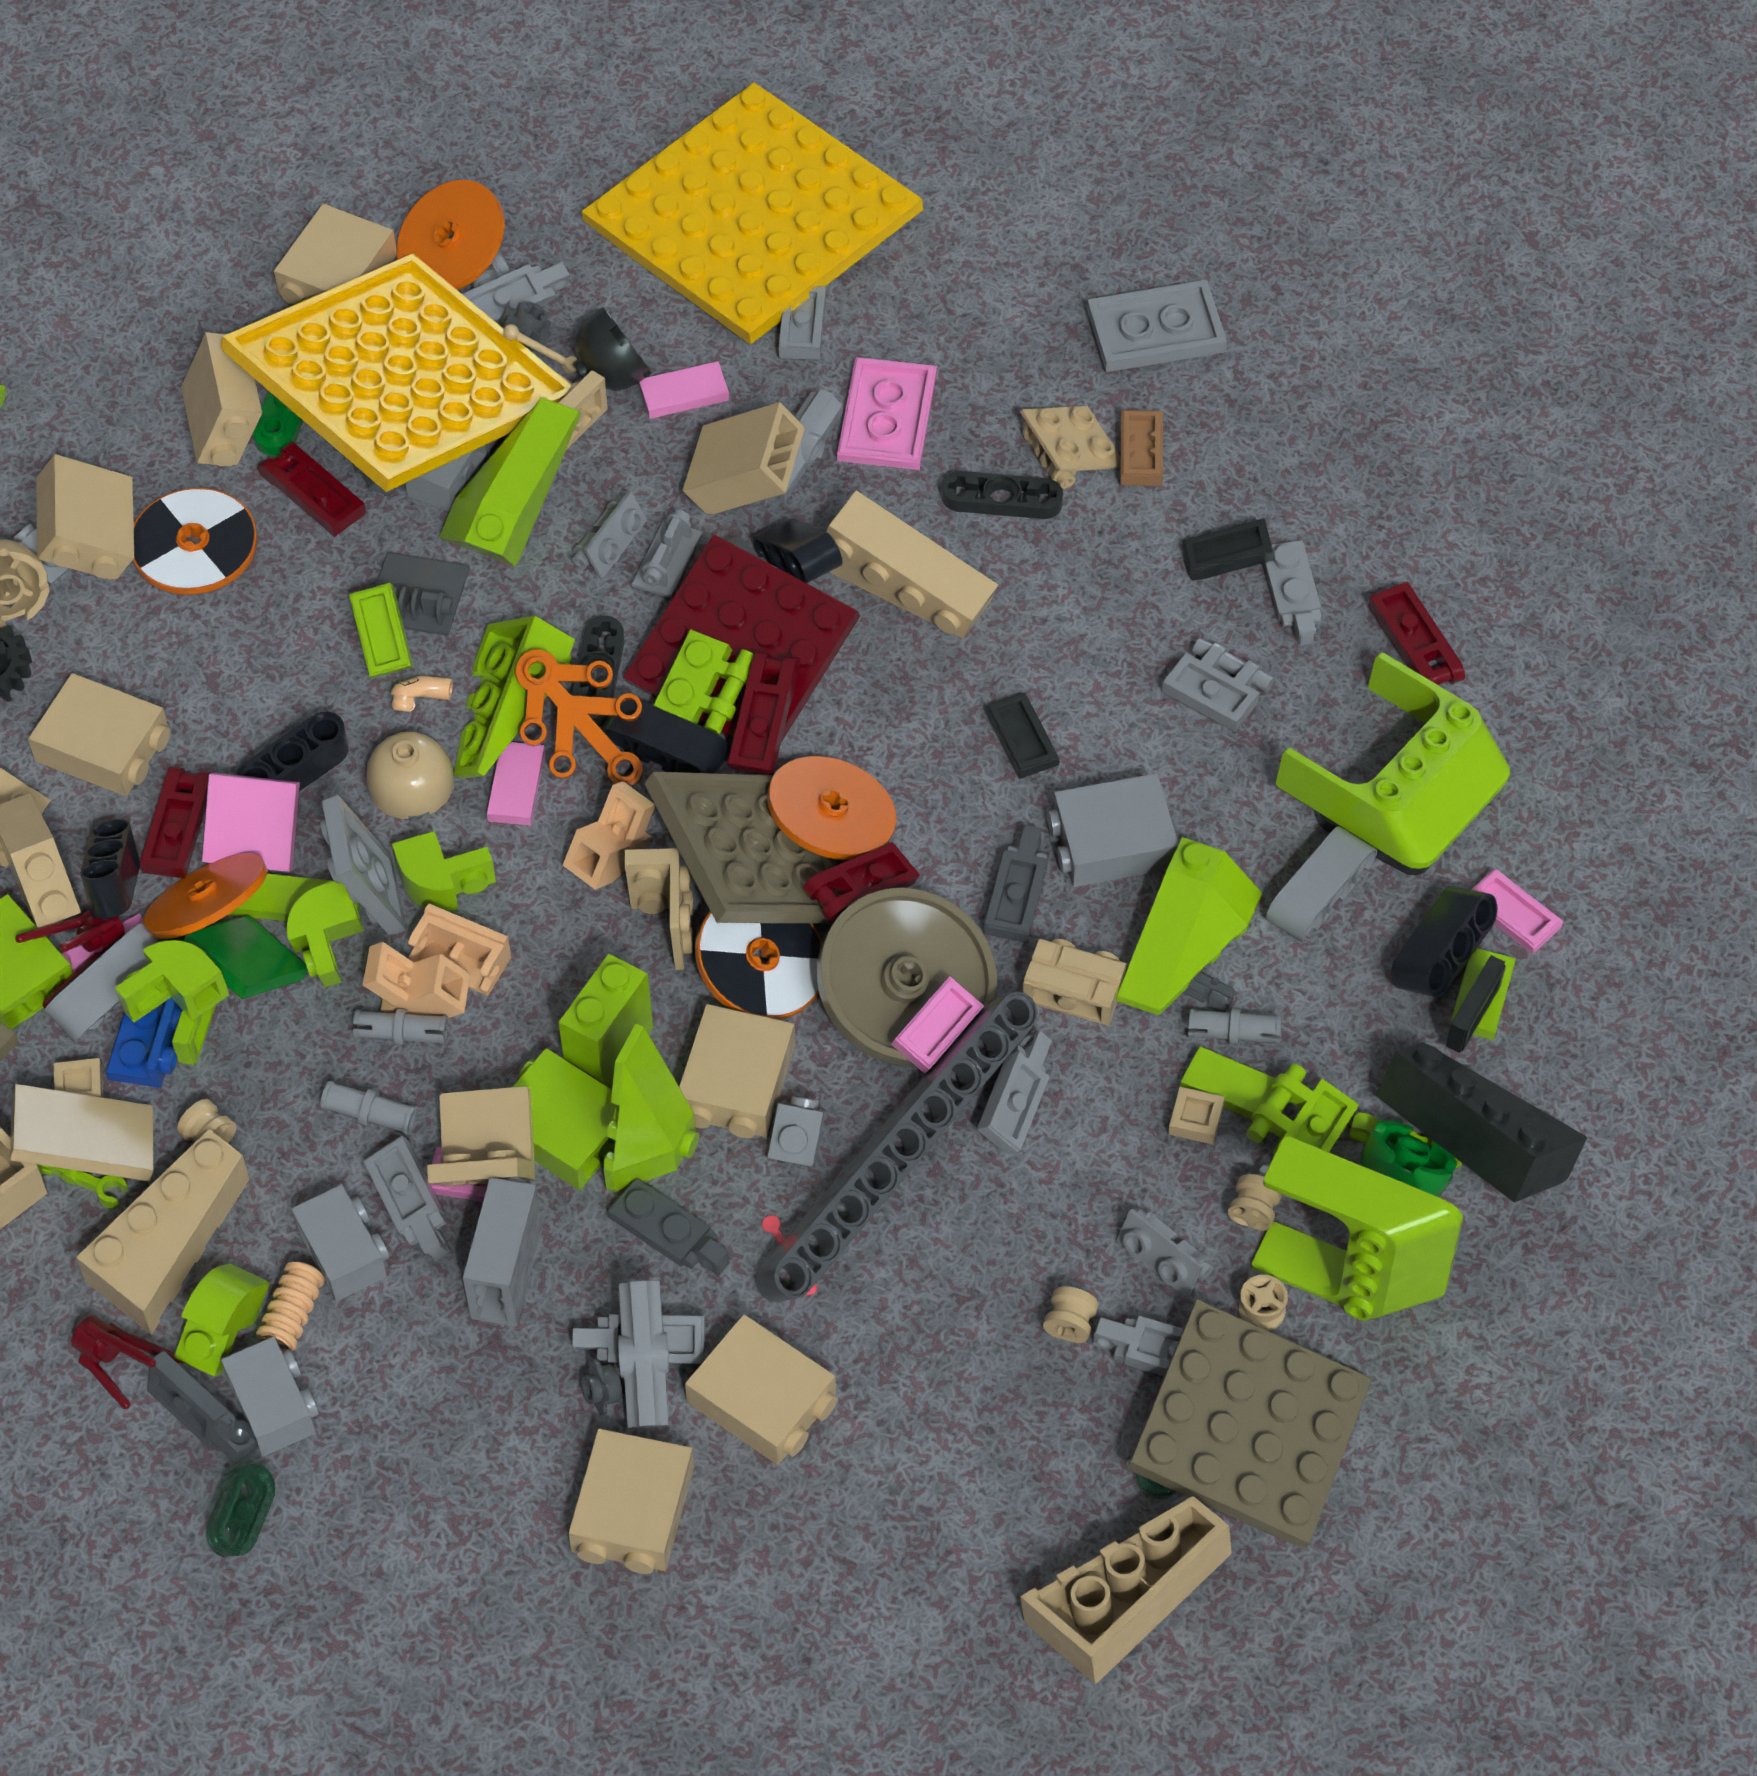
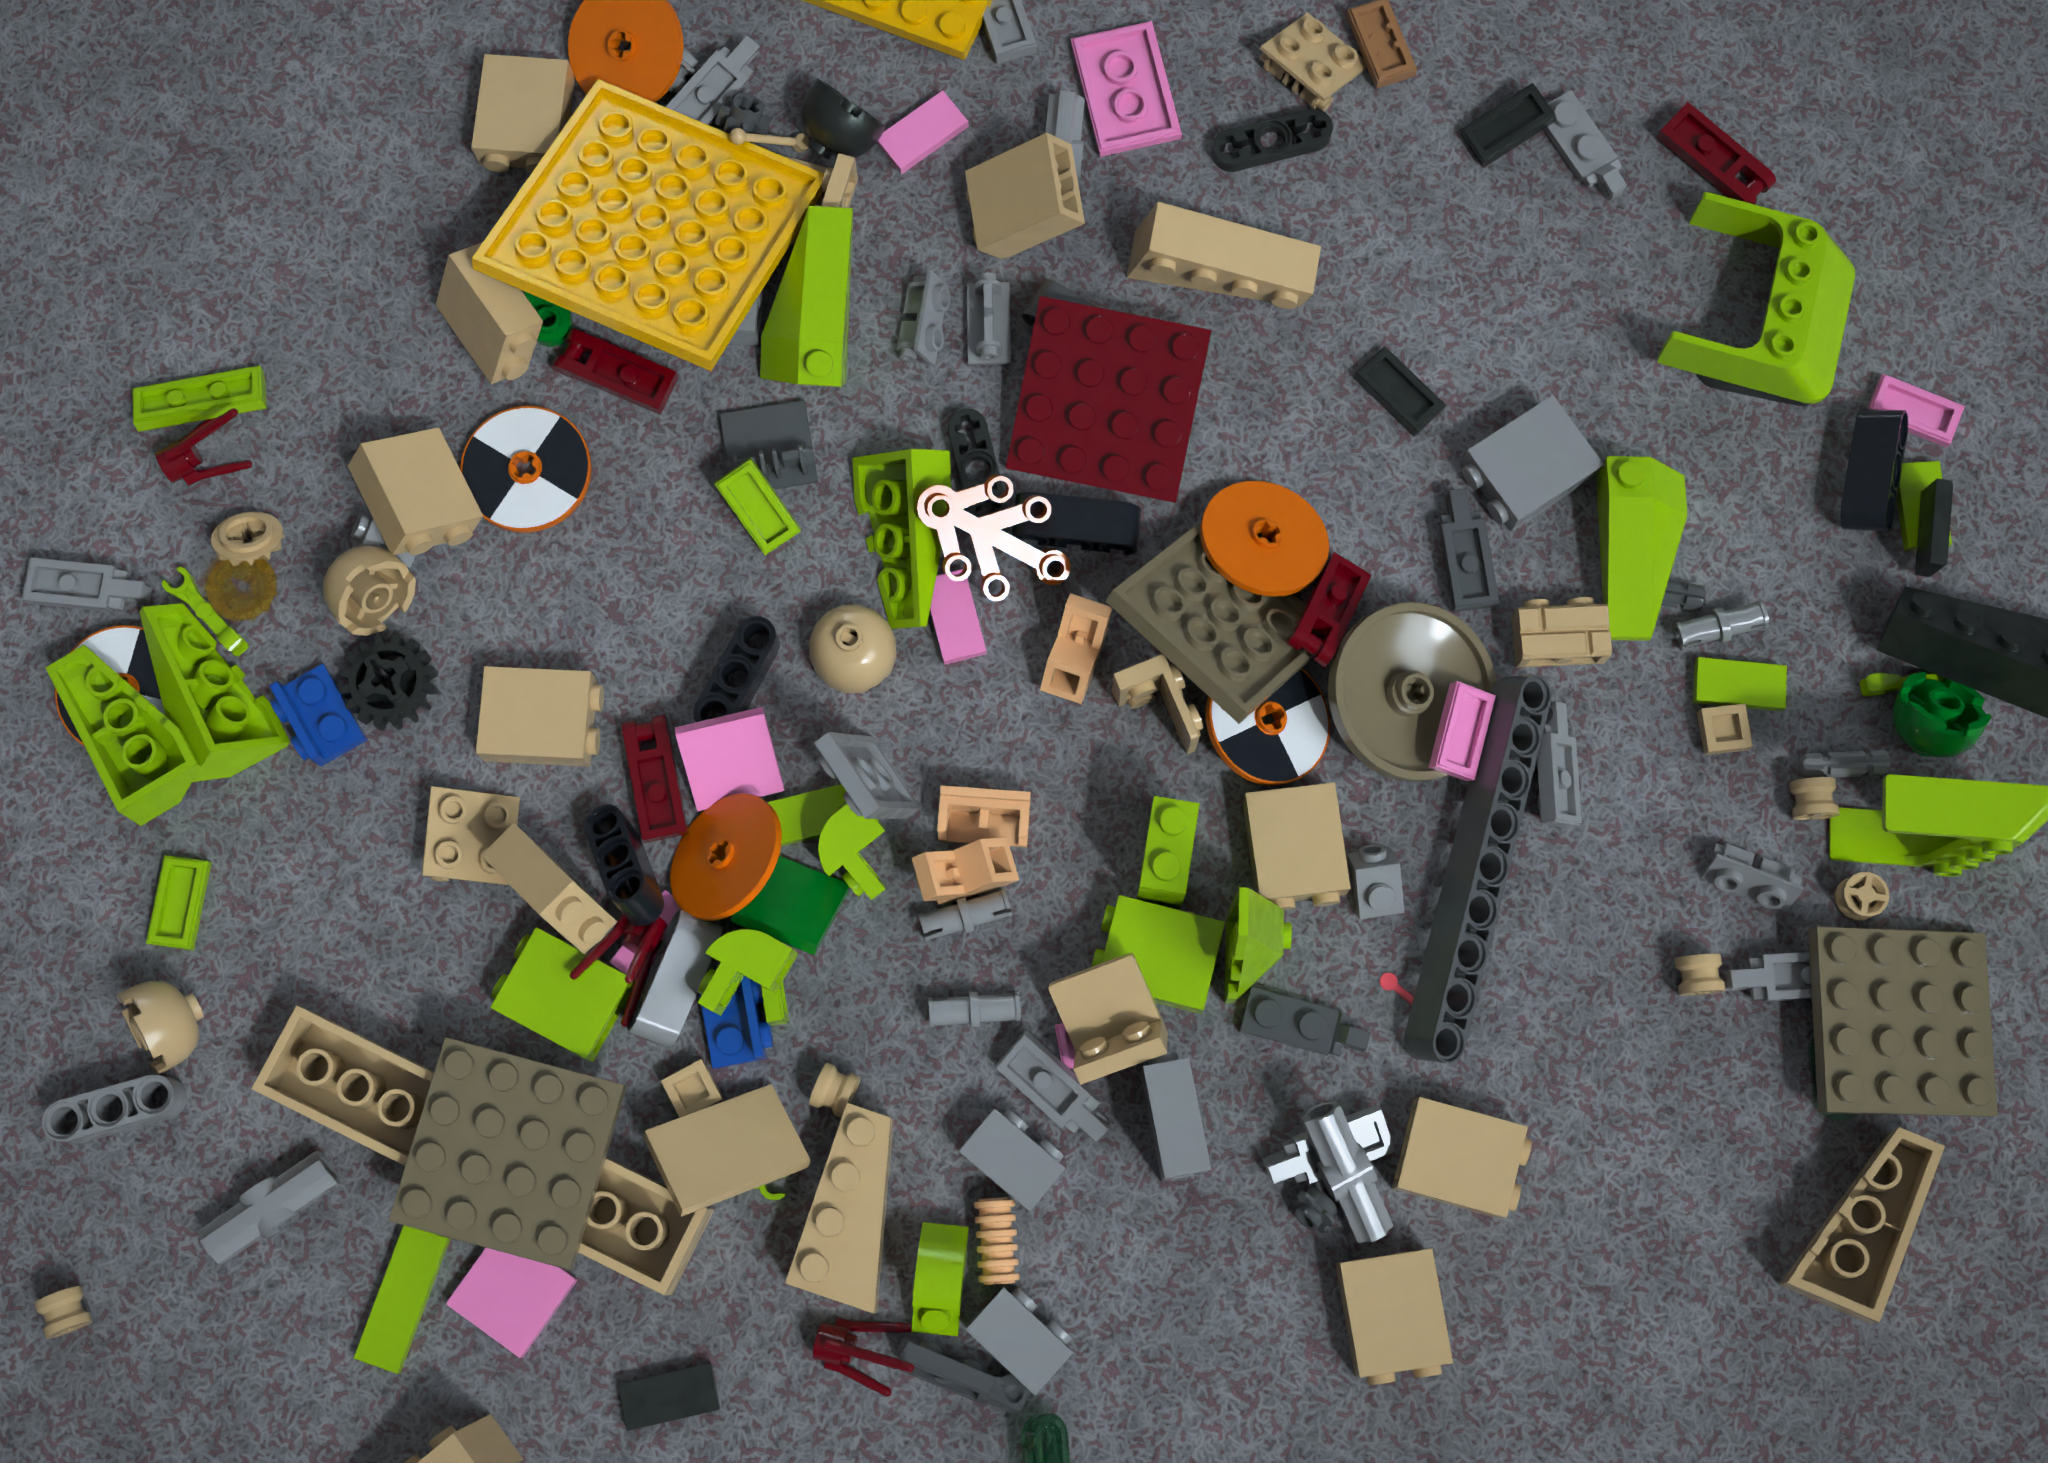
camera: 20 degrees left, 20 degrees up
(420, 686) = (815, 550): light nougat arm -> none
(437, 880) = (929, 753): lime brick -> none
(694, 679) = (1082, 449): lime plate -> none
(763, 714) = (1166, 468): dark red plate -> none
(798, 549) = (1120, 279): black beam -> none
(1213, 692) = (1557, 282): light grey plate -> none
(1320, 882) = (1741, 449): light grey beam -> none
(1321, 1113) = (1835, 700): lime plate -> none

